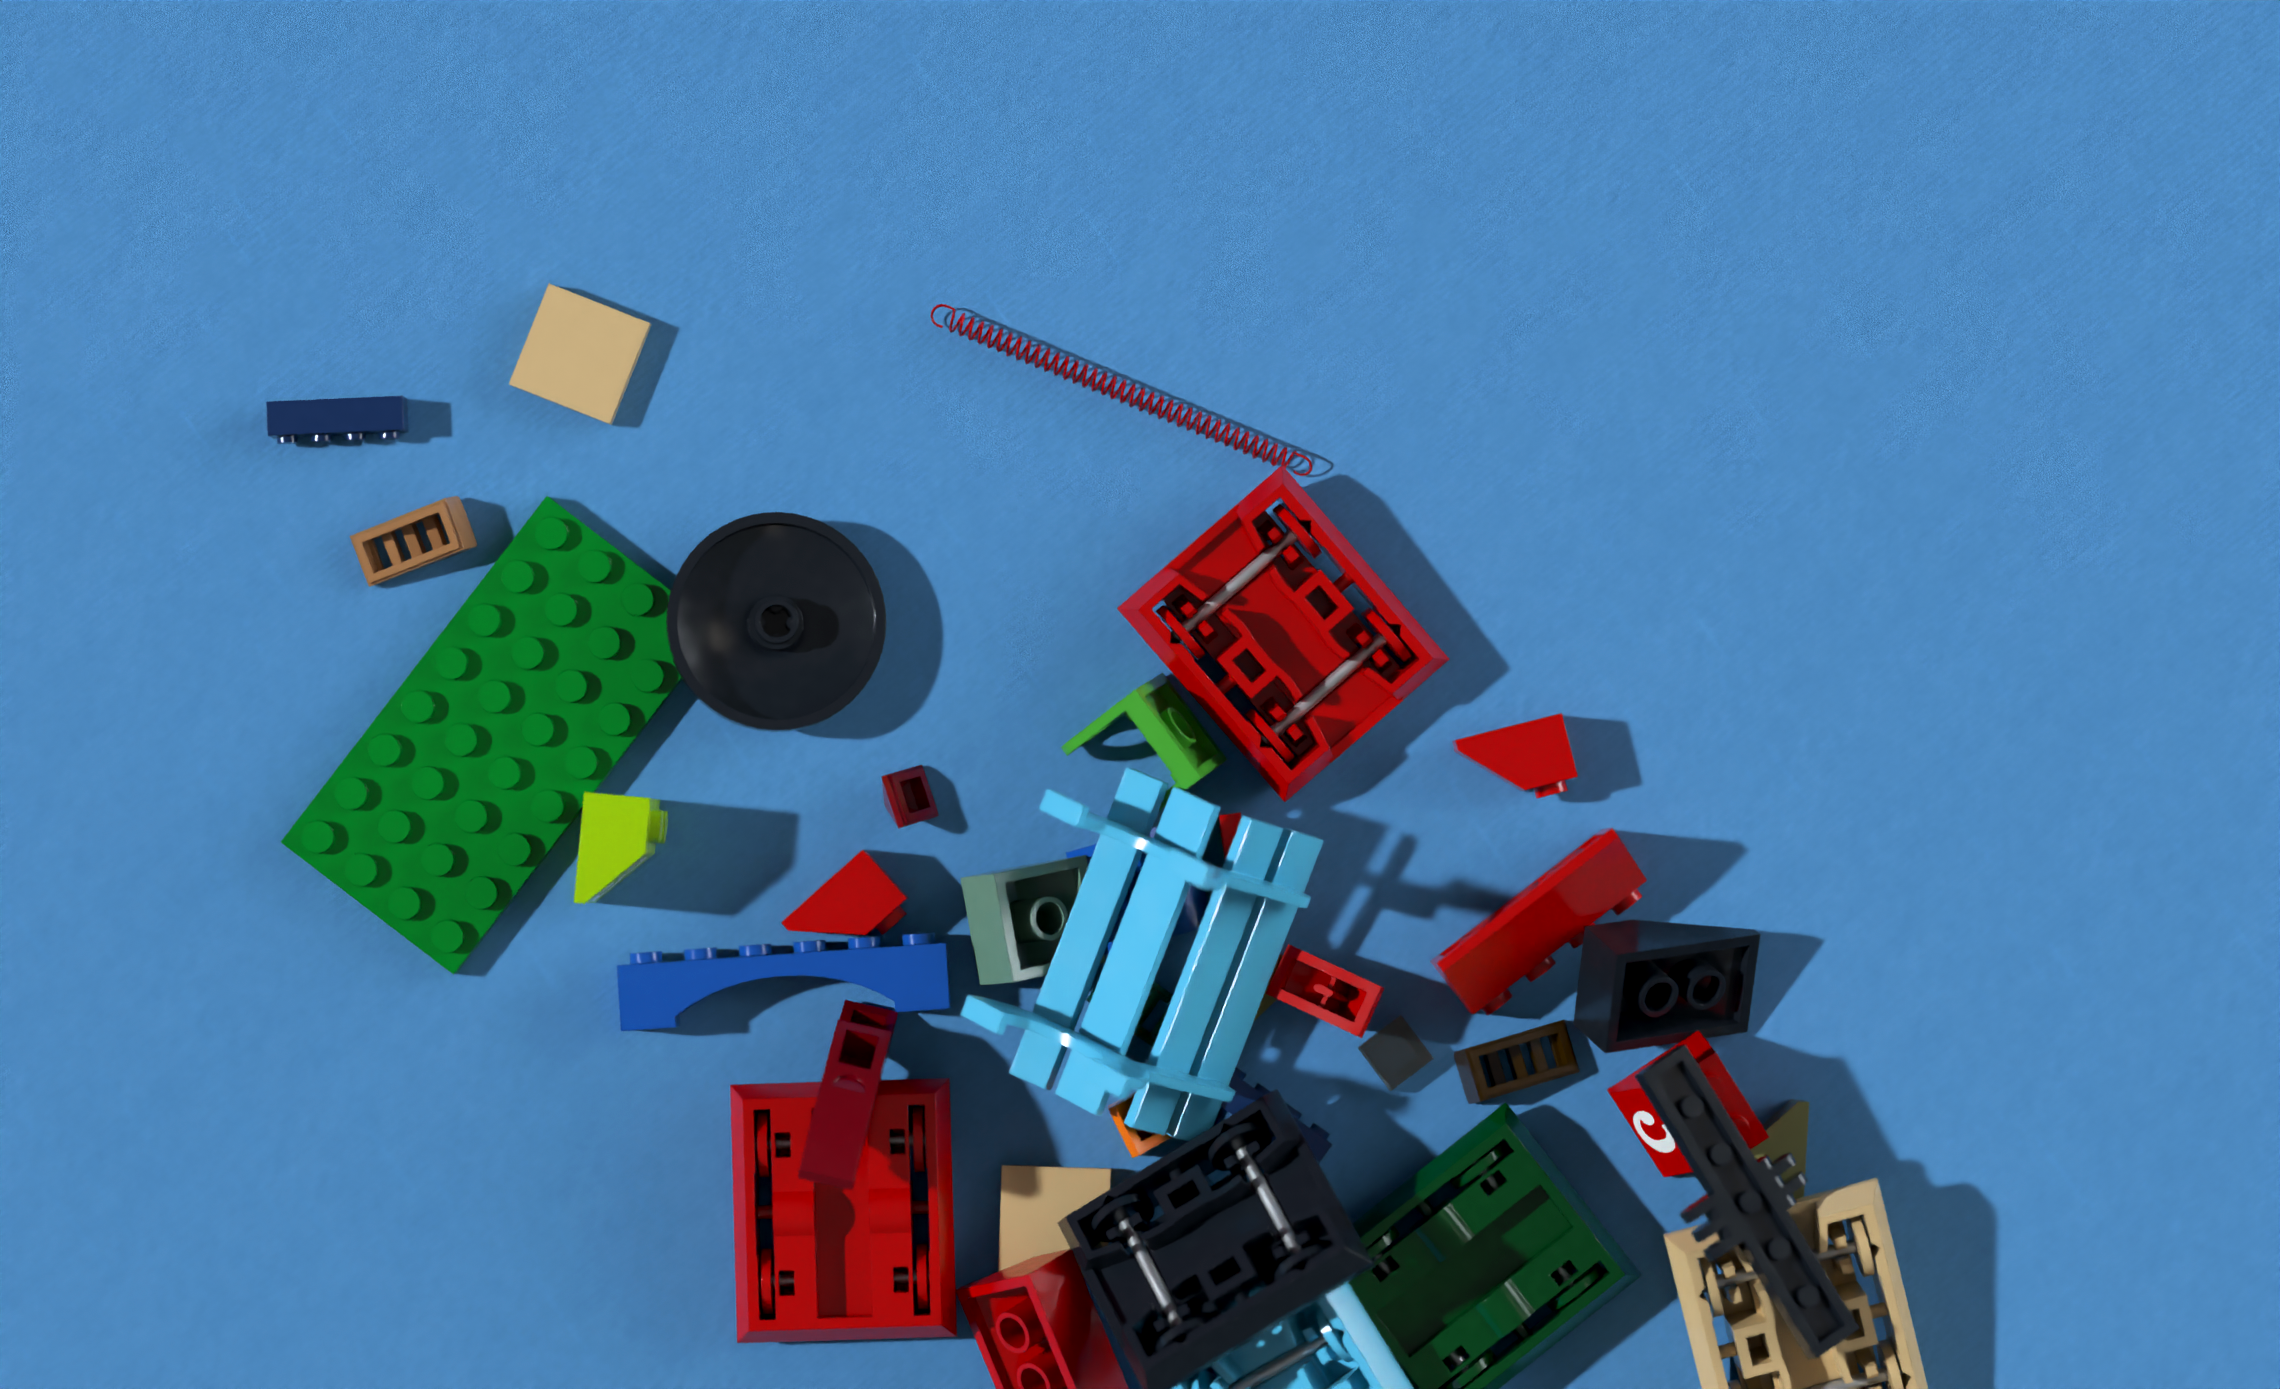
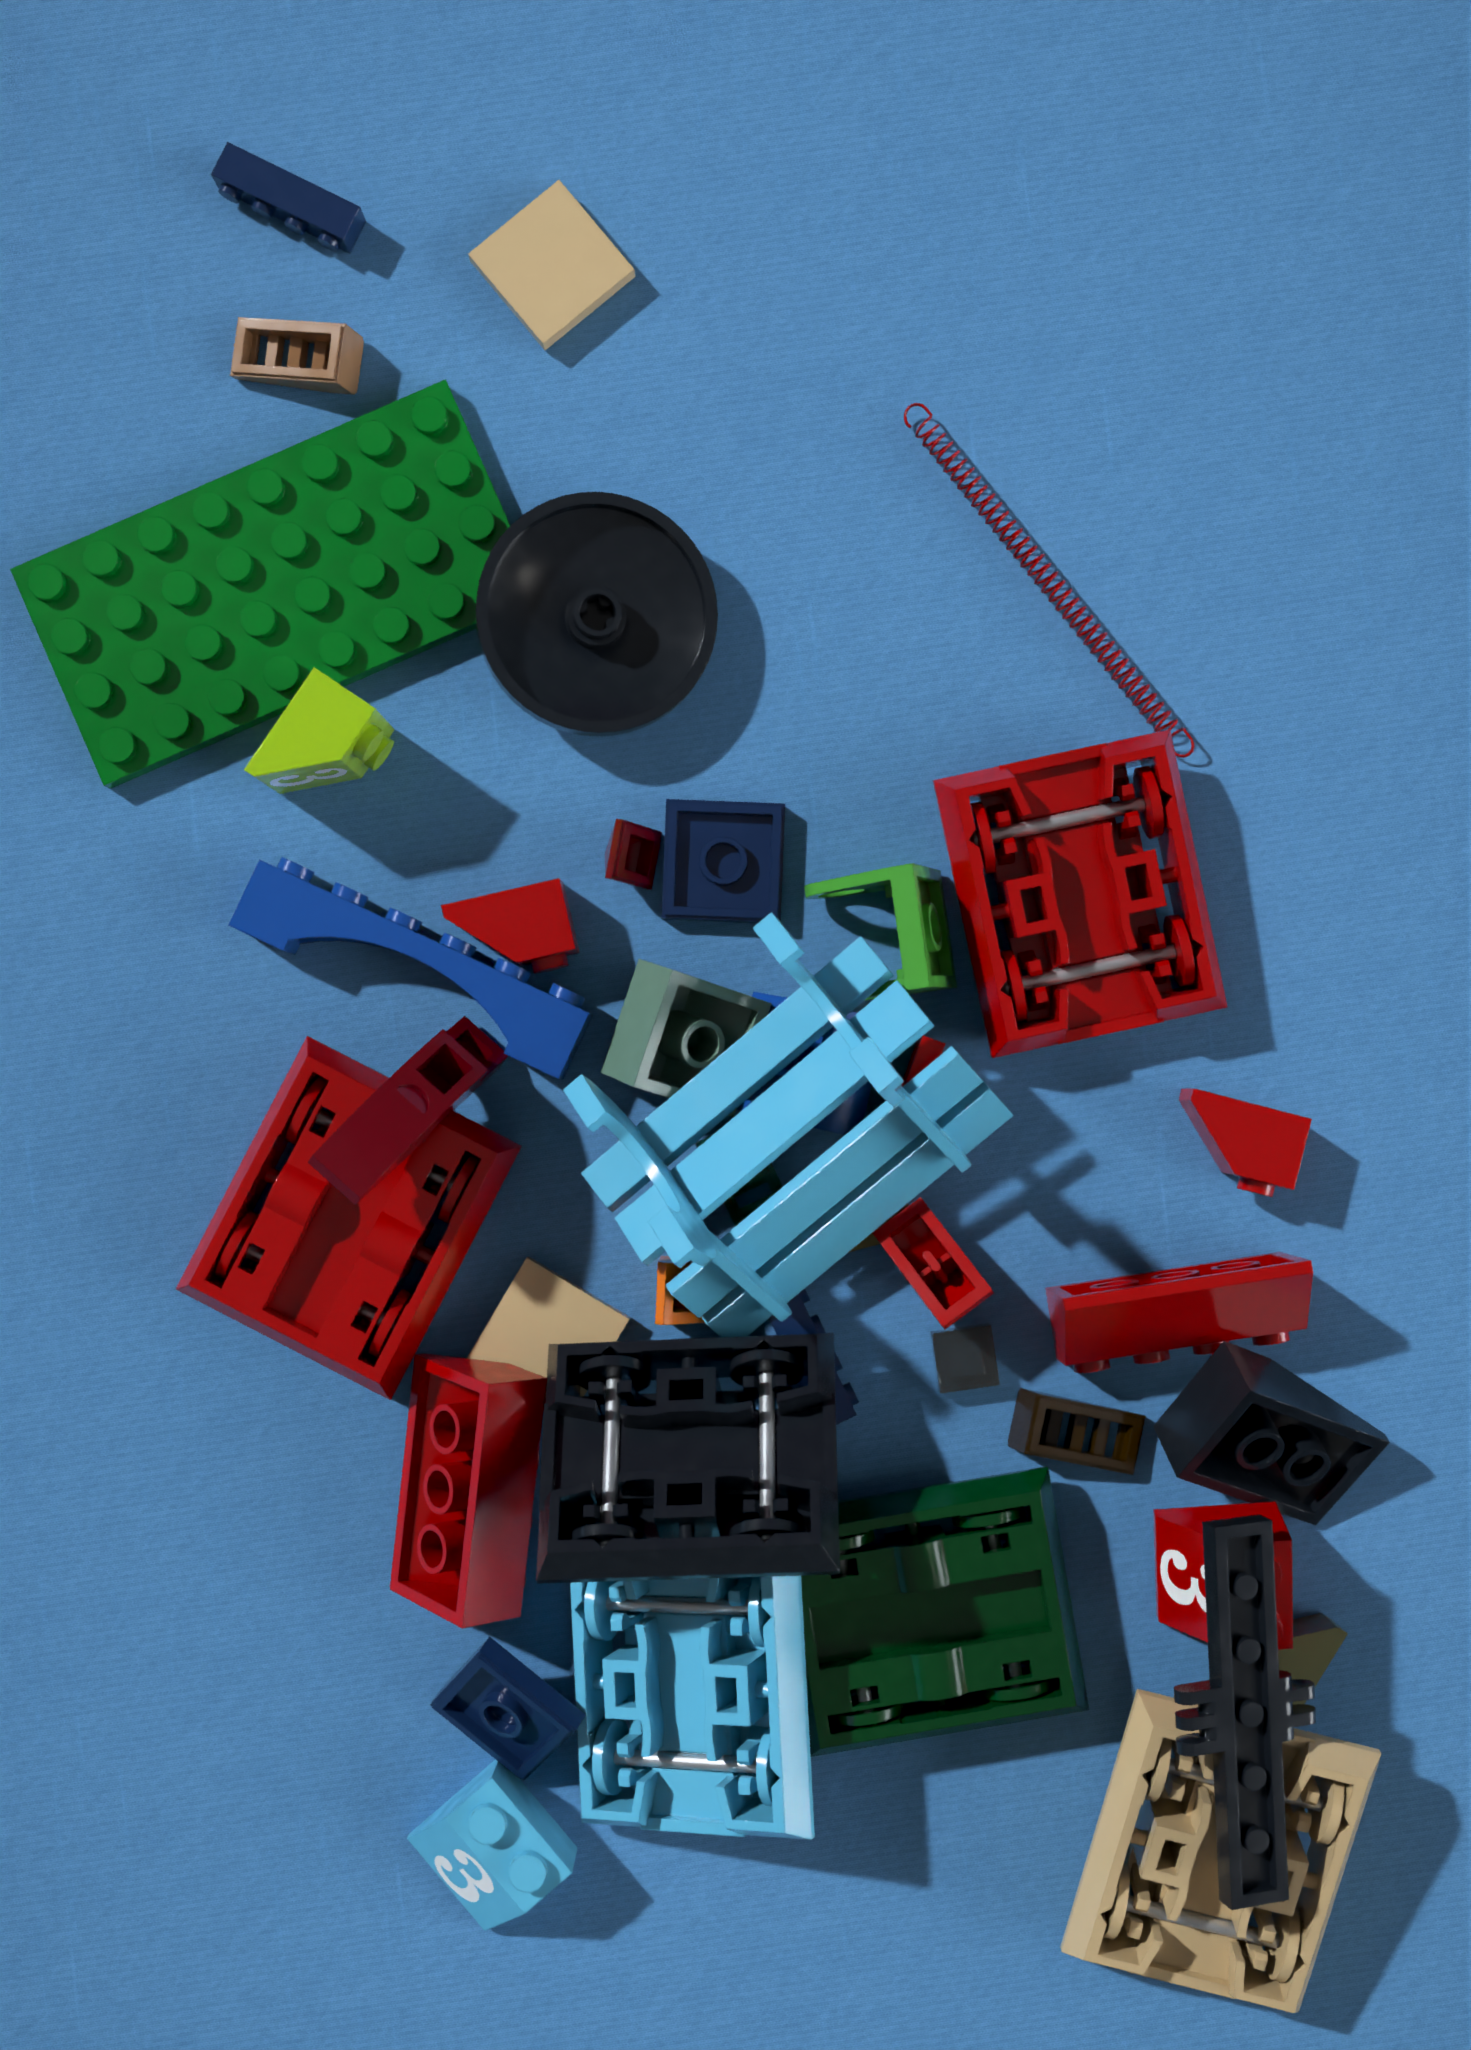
camera: 35 degrees right, 0 degrees up
(984, 761) = (722, 860): none -> dark blue tile

